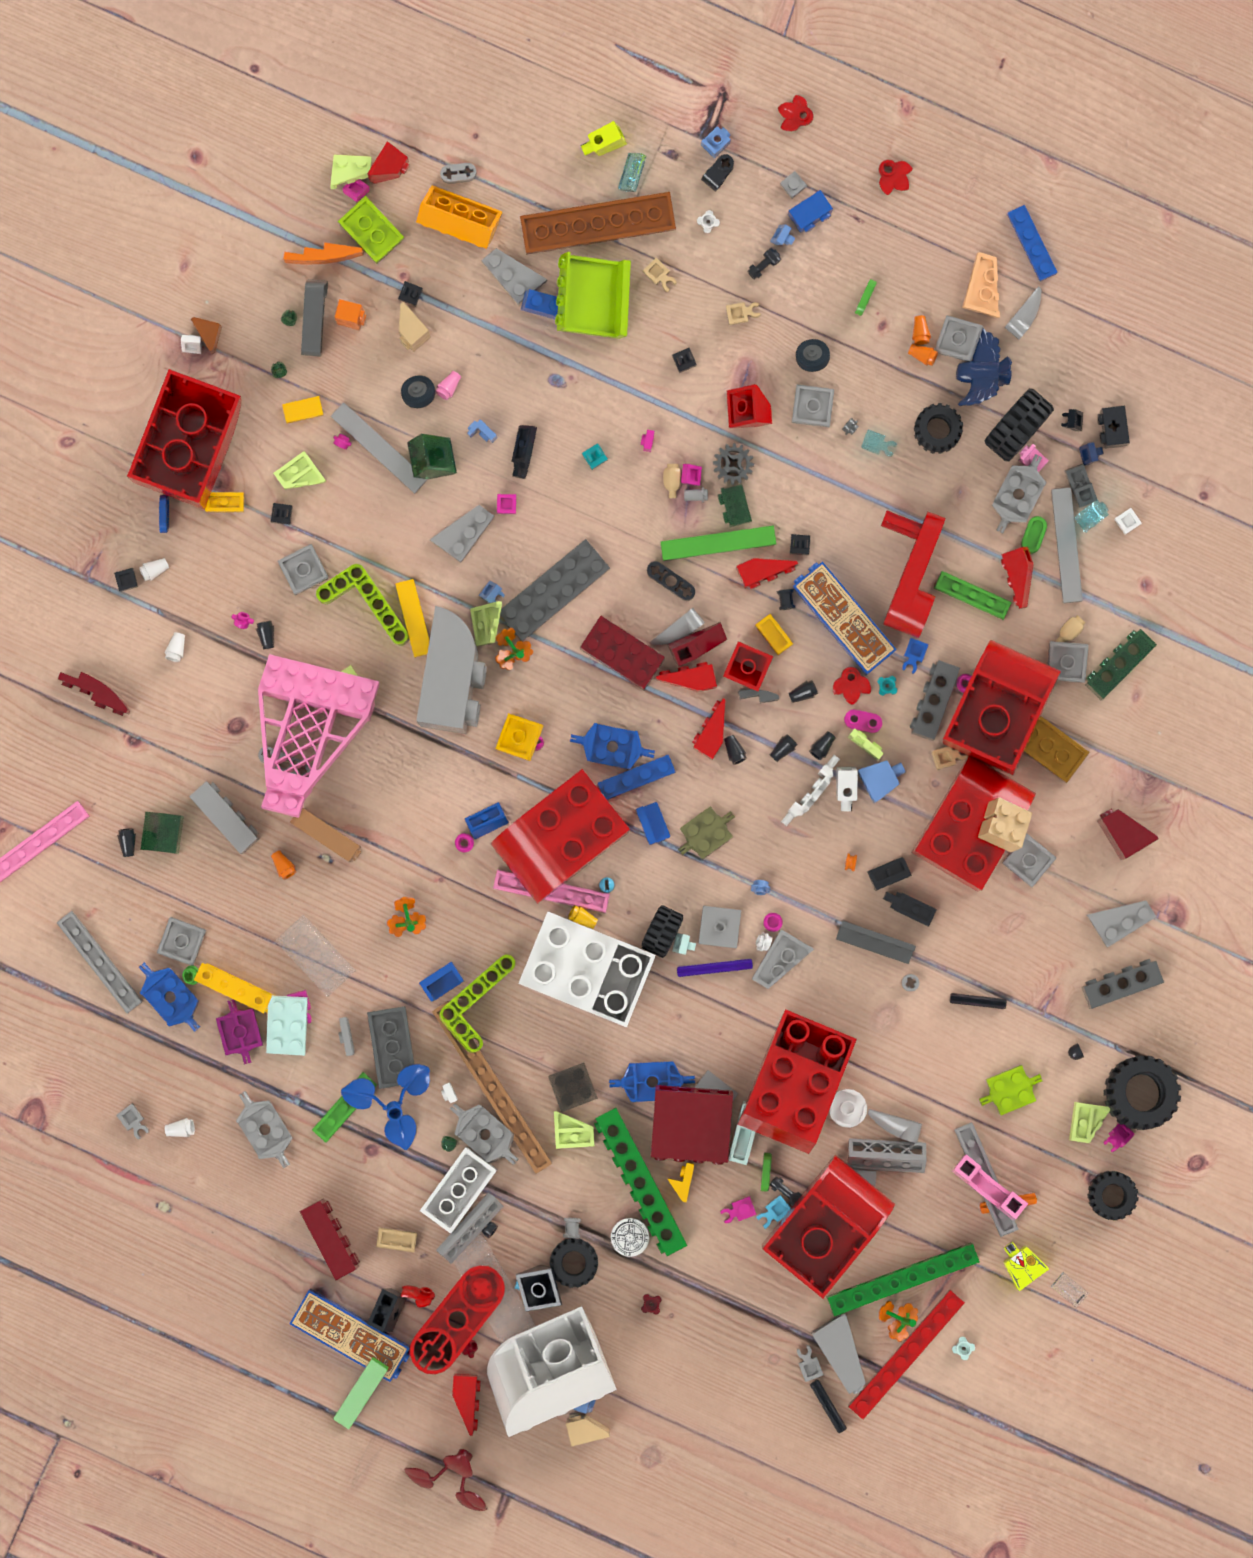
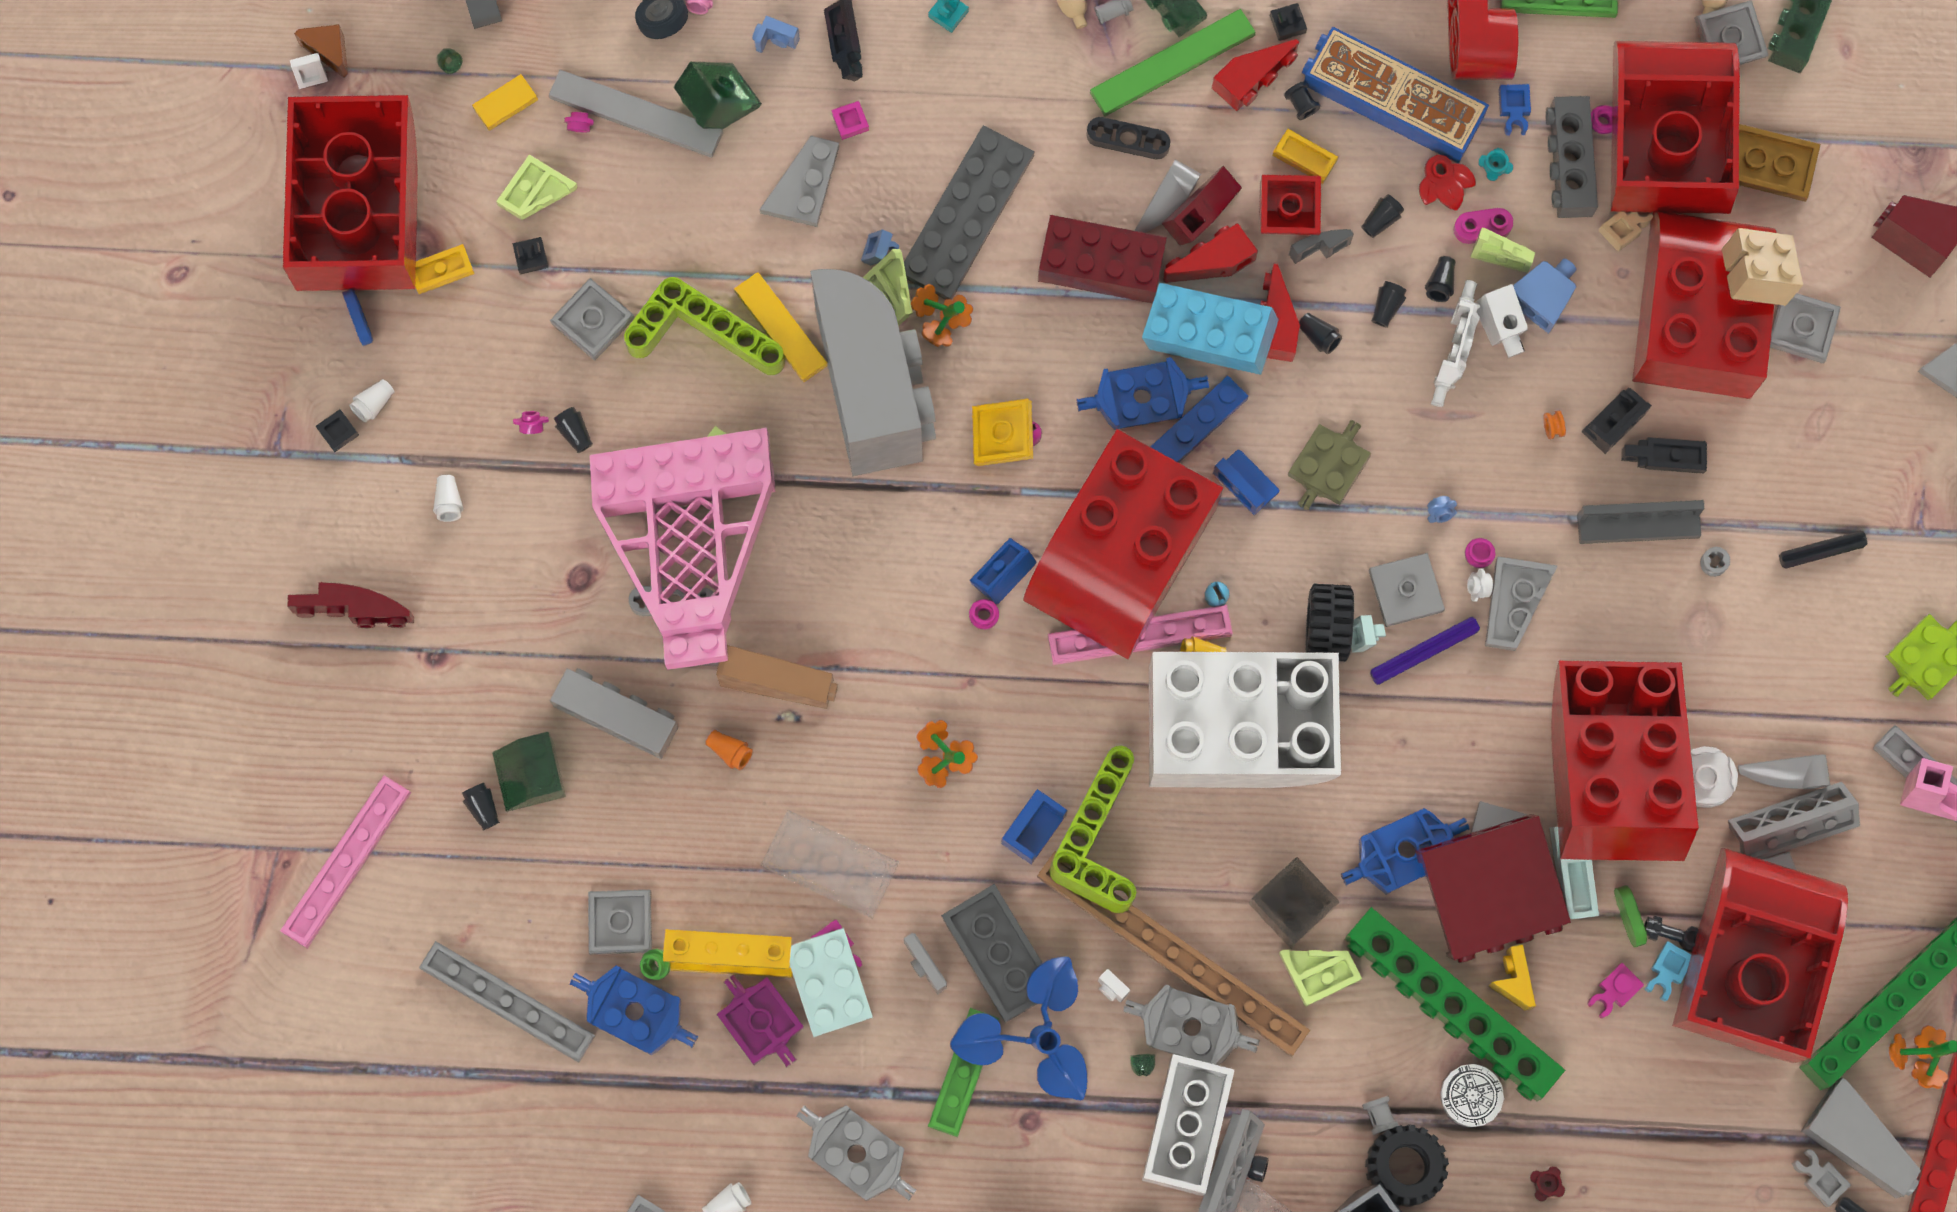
camera: 25 degrees left, 10 degrees down
(667, 724) = (1210, 328): none -> medium azure brick

